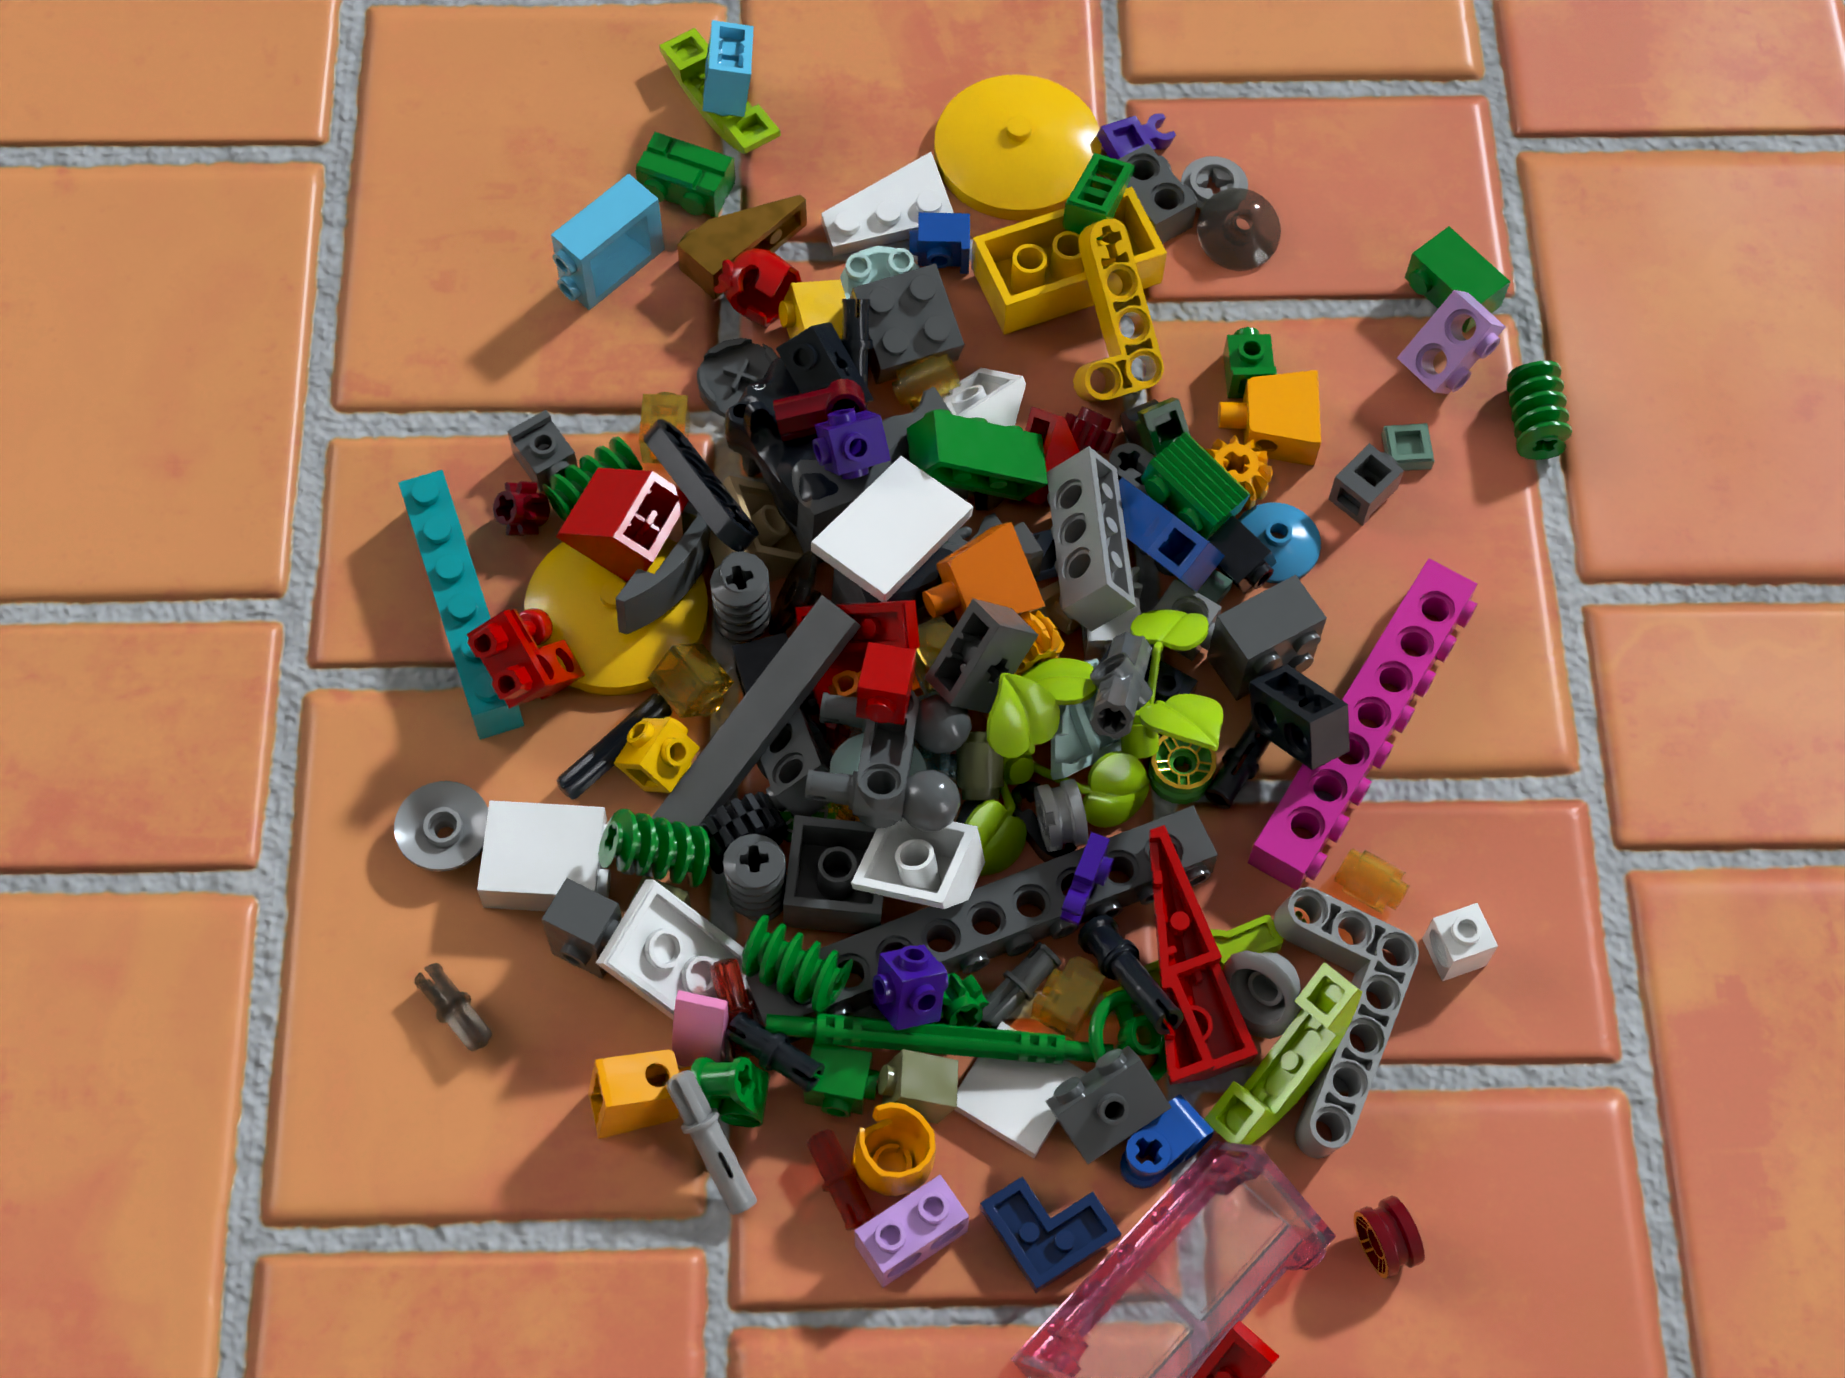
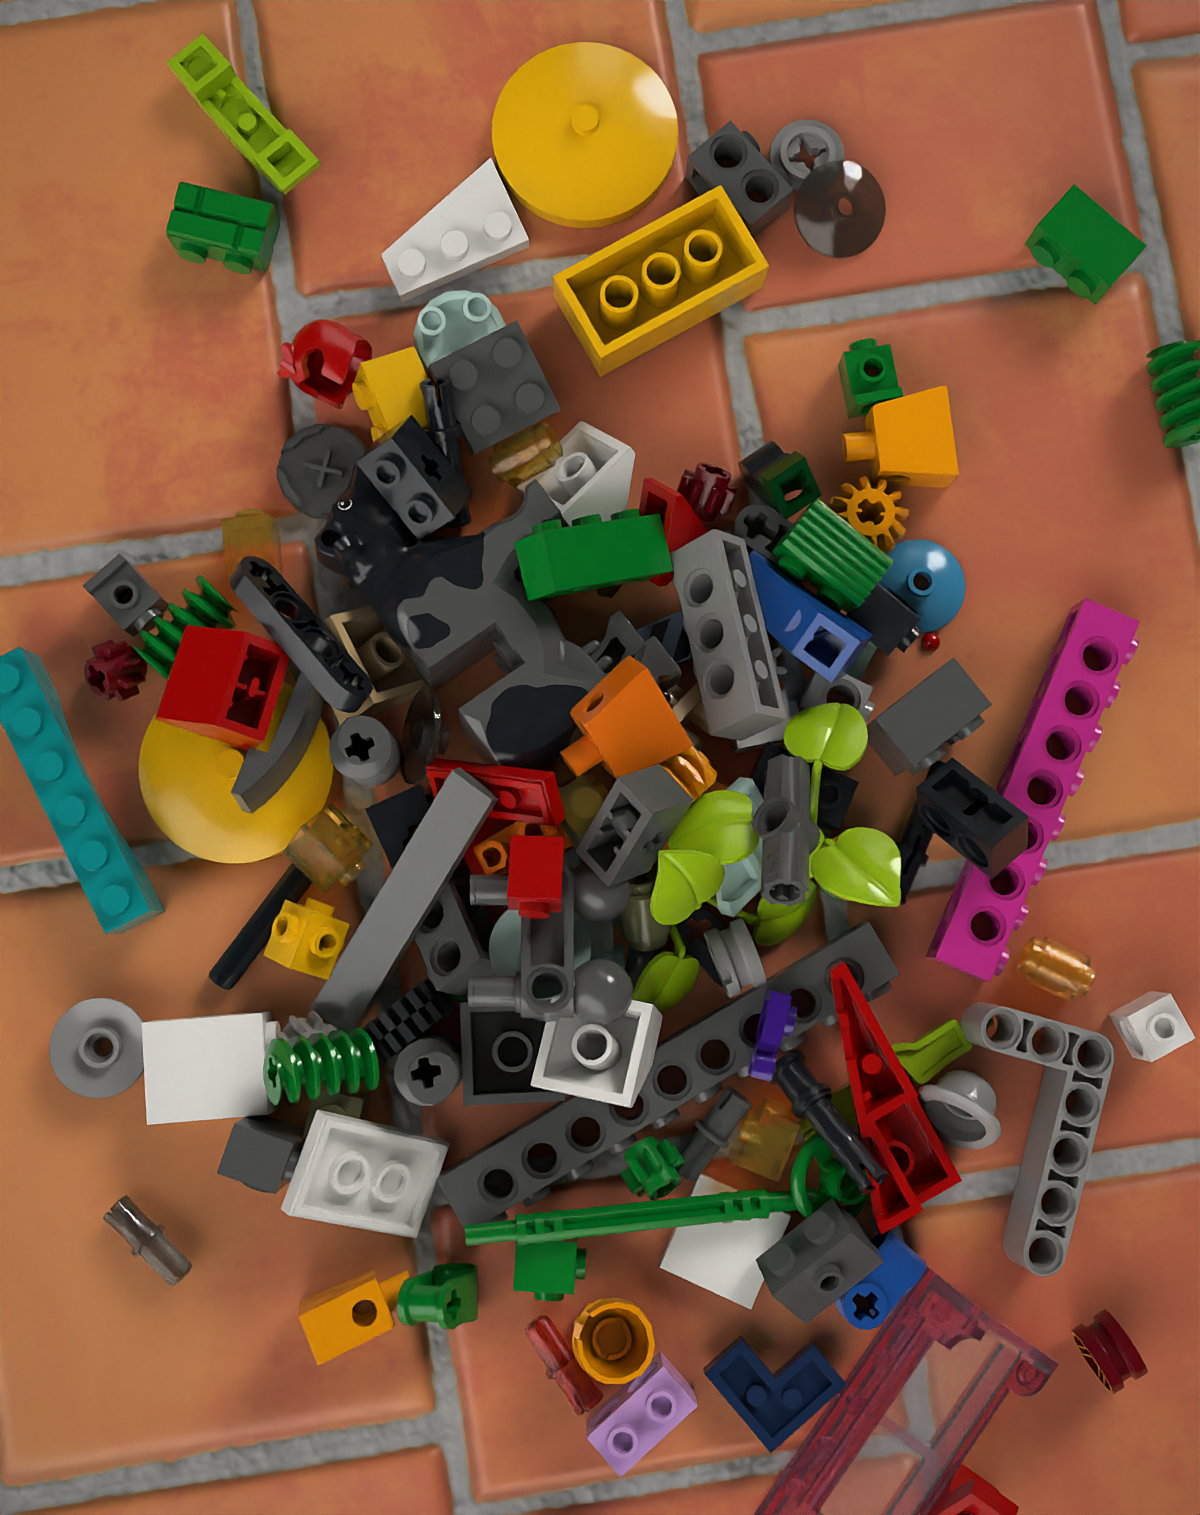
camera: 10 degrees left, 20 degrees up
(516, 663) = (144, 878): red hips -> none
(608, 242) = (150, 333): medium azure window -> none
(699, 1028) = (399, 1243): bright pink slope -> none
(705, 1130) = (417, 1353): light grey axle -> none
(728, 68) = (247, 91): medium azure brick -> none
(729, 235) = (290, 302): pearl gold slope -> none
(730, 987) = (432, 1210): clear red axle -> none
(775, 1052) = (479, 1263): black pin -> none
(793, 966) = (483, 1175): green piece -> none
(800, 413) = (431, 533): dark red piece -> none
(851, 443) = (456, 583): dark purple brick -> none
(892, 529) = (516, 675): white tile -> none
(910, 987) = (606, 1178): dark purple brick -> none
(921, 1082) = (628, 1265): olive brick -> none
(942, 240) = (518, 272): blue brick -> none
(1095, 196) = (680, 234): green slope -> none
(1111, 309) = (717, 348): yellow beam -> none
(1128, 135) = (709, 110): dark purple plate -> none
(1292, 1063) = (993, 1188): lime slope -> none
(1365, 483) = (999, 526): dark grey brick -> none
(1409, 446) = (1046, 453): sand green tile -> none
(1445, 334) = (1084, 327): lavender brick -> none

